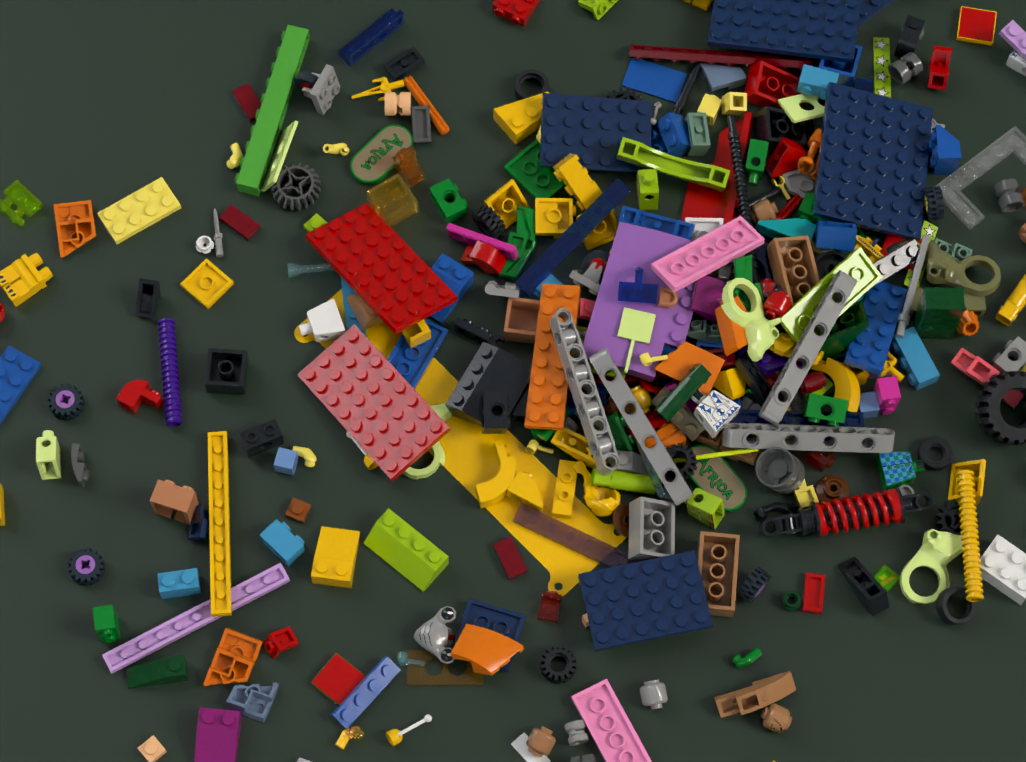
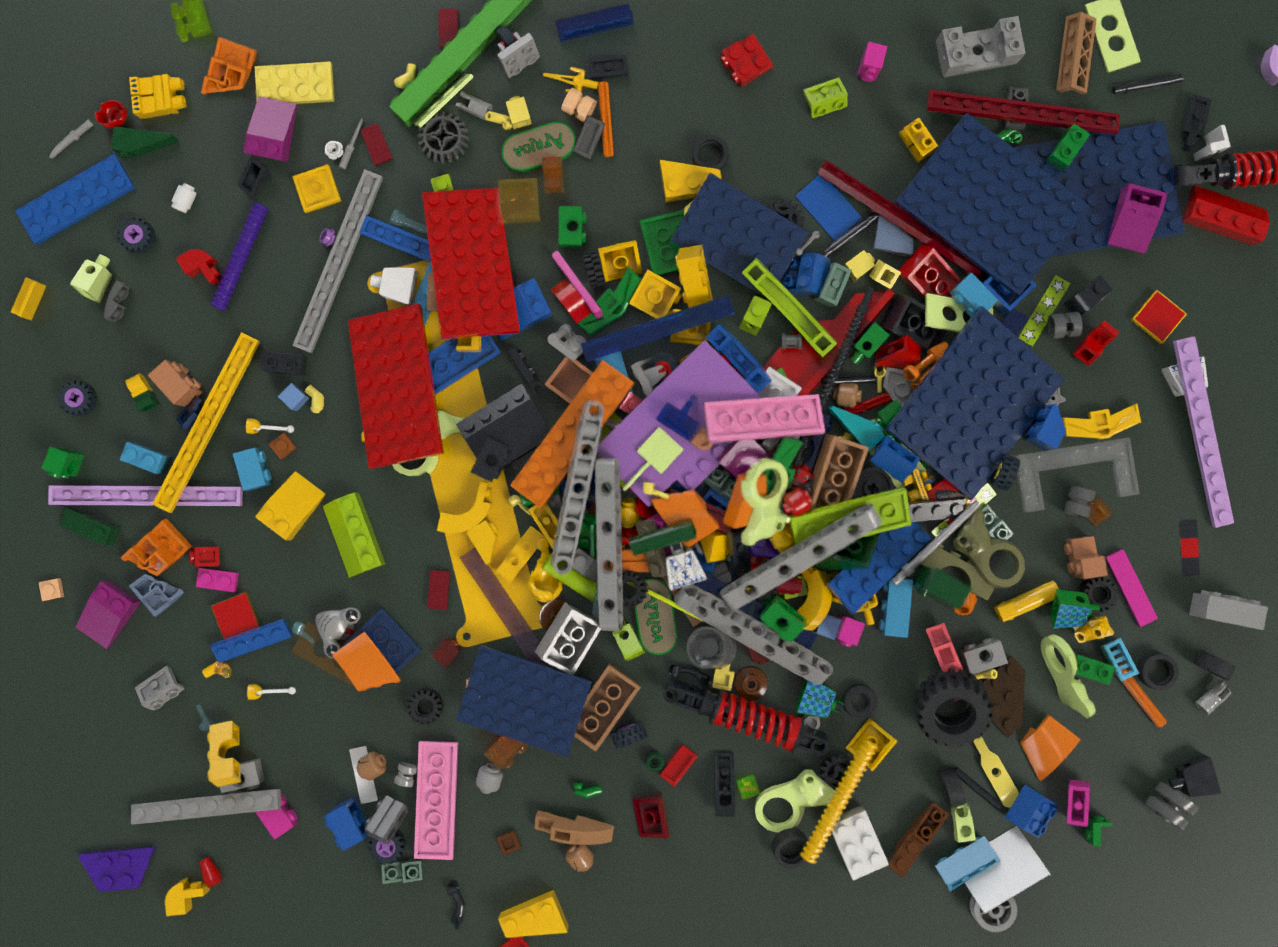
camera: 35 degrees right, 20 degrees up
(25, 324) = (136, 142): none -> dark green slope
(92, 349) = (183, 197): none -> white brick
(141, 253) = (271, 129): none -> magenta slope
(144, 531) = (142, 393): none -> leg
(226, 371) = (285, 285): black brick -> none
(240, 316) = (327, 237): none -> medium lavender plate
(260, 332) = (337, 261): none -> light grey plate
(263, 506) = (253, 426): none -> hinge
(303, 286) = (395, 238): none -> blue plate
(303, 657) = (217, 579): none -> dark pink plate
(311, 149) = (476, 106): none -> light grey hinge
(349, 134) = (518, 112): none -> light yellow brick
(652, 659) = (504, 750): none -> clear orange brick
(690, 194) = (791, 341): none -> dark grey bush
(705, 744) = (509, 842): none -> reddish brown tile
(818, 647) = (651, 816): none -> dark red slope
(985, 128) = (1101, 423): none -> yellow plate

